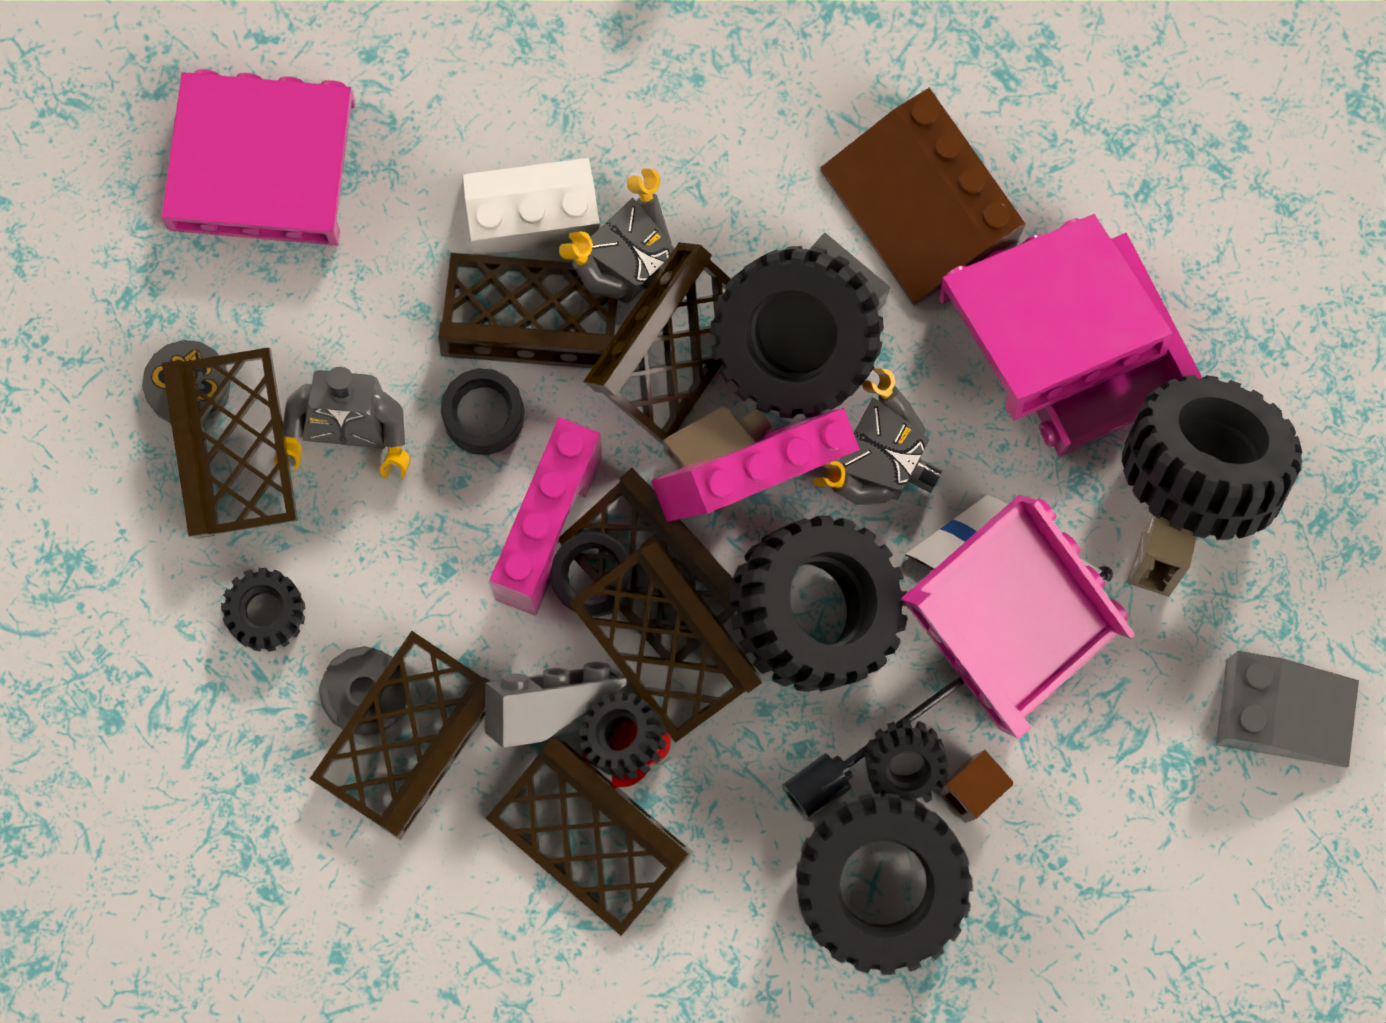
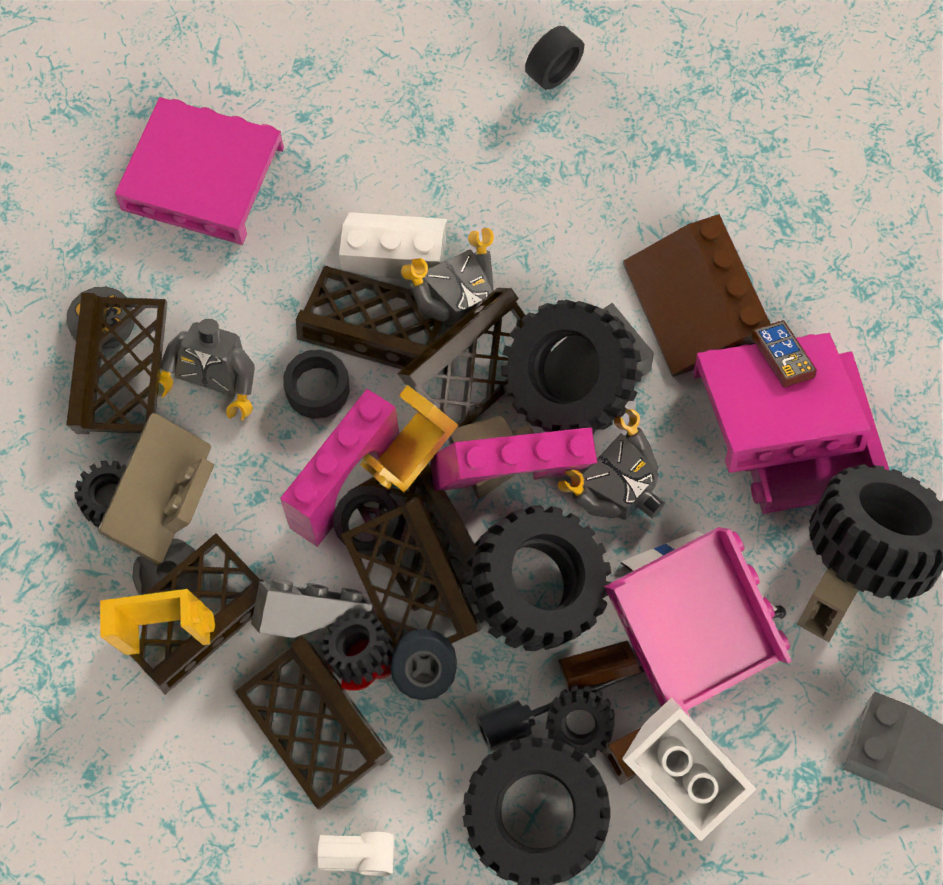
camera: 20 degrees right, 10 degrees down
(328, 592) = (158, 489): none -> dark tan bracket
(332, 769) = (123, 615): none -> yellow panel
(627, 471) = (413, 445): none -> yellow panel
(692, 976) = (368, 853): none -> white piece
(707, 752) = (420, 676): none -> black wheel
(910, 688) = (599, 665): none -> reddish brown tile
(1044, 793) = (687, 770): none -> white slope
(1047, 256) = (784, 353): none -> tile

